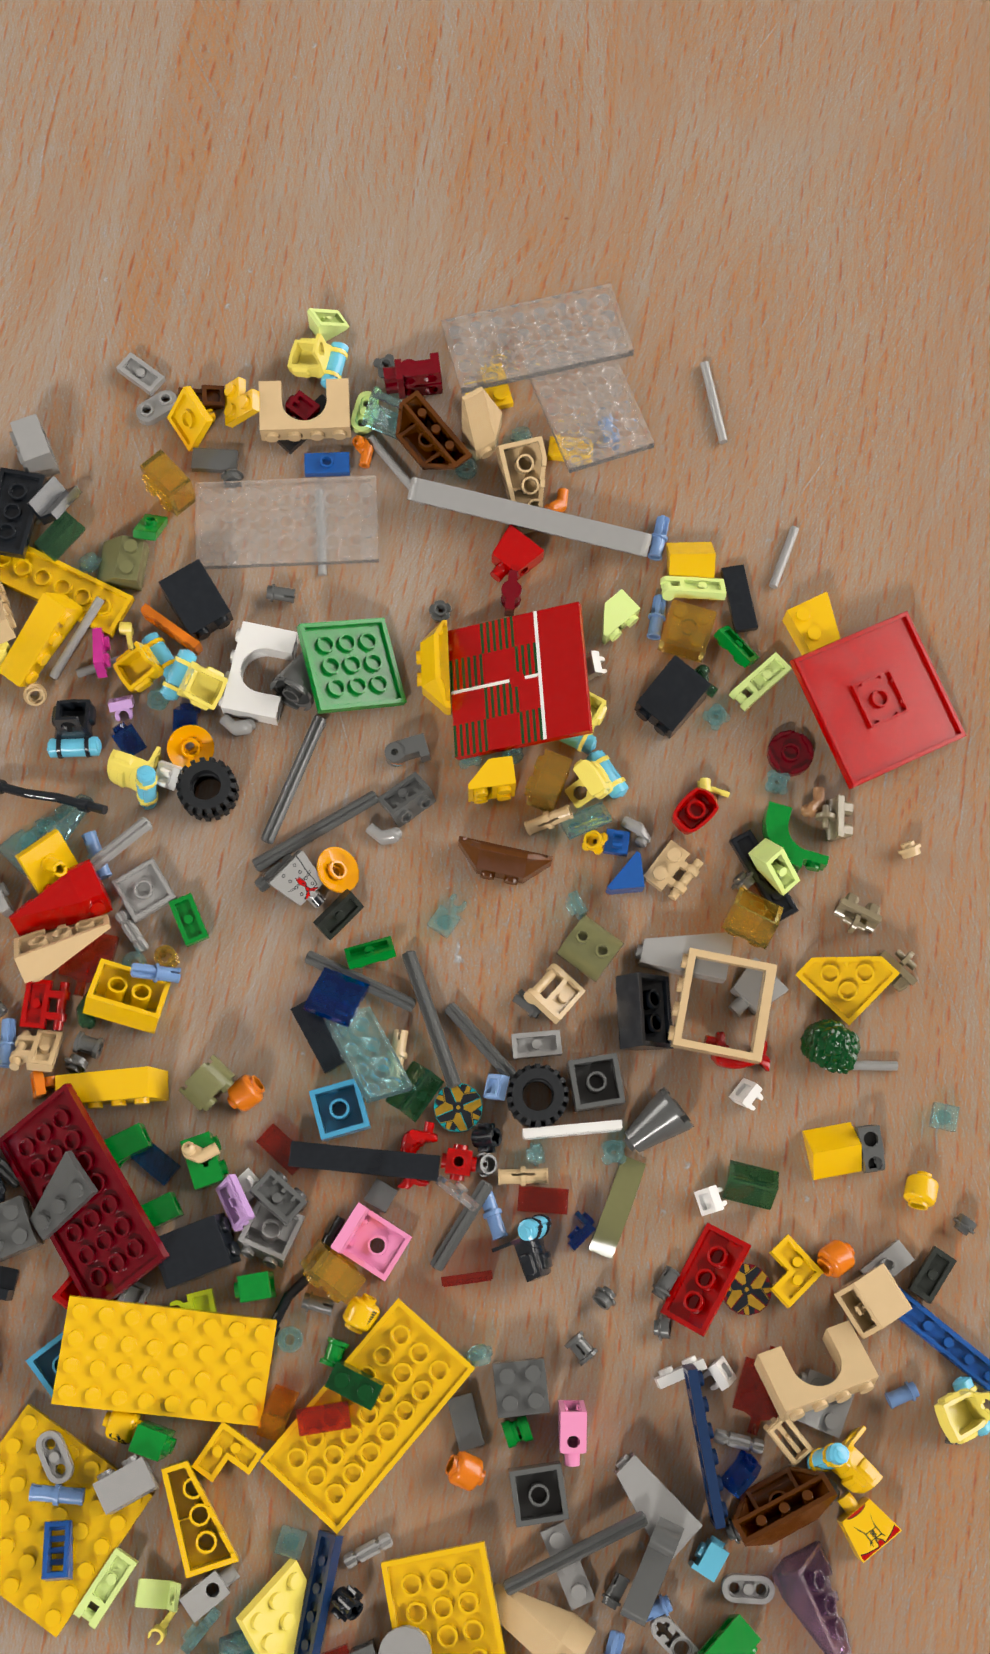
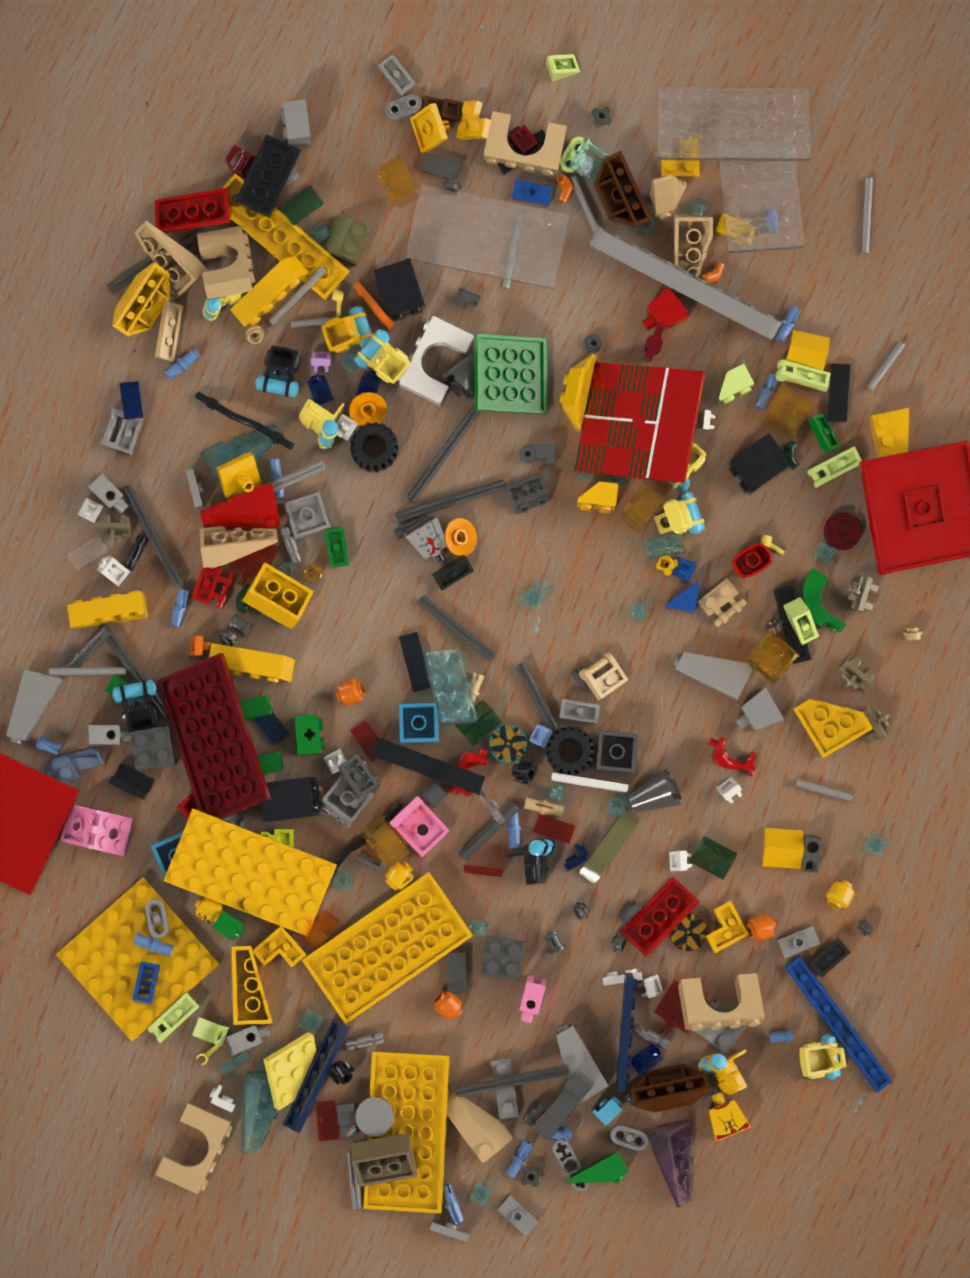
camera: 15 degrees right, 10 degrees up
(43, 1051) = (206, 623): tan plate -> none
(52, 500) = (302, 174): panel -> none
(63, 1197) = (200, 735): dark grey wing -> none
(101, 658) = (313, 319): dark pink plate -> none
(125, 1485) = (205, 950): light grey brick -> none
(150, 527) = (376, 215): green plate -> none
(155, 972) = (303, 584): medium blue axle -> none
(199, 1154) = (307, 730): tan arm -> none
(207, 1083) = (324, 678): olive brick -> none
(237, 1199) = (327, 770): lavender tile -> none
(238, 728) = (409, 401): light grey arm -> none
(255, 1286) = (326, 836): green brick -> none
(317, 358) = (544, 98): light yellow piece -> none
(324, 1418) = (355, 942): clear red tile -> none
(334, 1351) = (373, 898): green bush -> none
(336, 997) = (436, 637): clear blue slope -> none
(354, 1384) = (383, 924): dark green brick -> none
(370, 952) = (470, 608): green plate -> none
(384, 837) = (503, 519): light grey arm -> none
(414, 375) = (621, 136): dark red hips -> none
(431, 1019) = (504, 671): dark grey axle -> none
(458, 1173) = (490, 784): red brick -> none
(491, 1164) = (522, 791): dark grey plate -> none
(503, 861) = (590, 563): reddish brown wedge -> none
(511, 1432) = (487, 987): green wheel -> none
(538, 1493) = (496, 1034): dark grey brick -> none
(548, 819) = (634, 538): tan pin -> none
(590, 948) = (641, 647): olive brick -> none
(639, 829) = (704, 563): light grey arm -> none
(643, 1011) = (668, 707): black slope -> none
(716, 709) = (796, 487): clear light blue plate -> none
(762, 1013) = (702, 698): tan window -> none
(776, 1424) = (694, 1057): tan tile -> none
(815, 805) = (848, 580): medium nougat arm -> none
(830, 1045) = (803, 770): dark green hair -> none
(872, 1301) = (778, 964): tan slope -> none

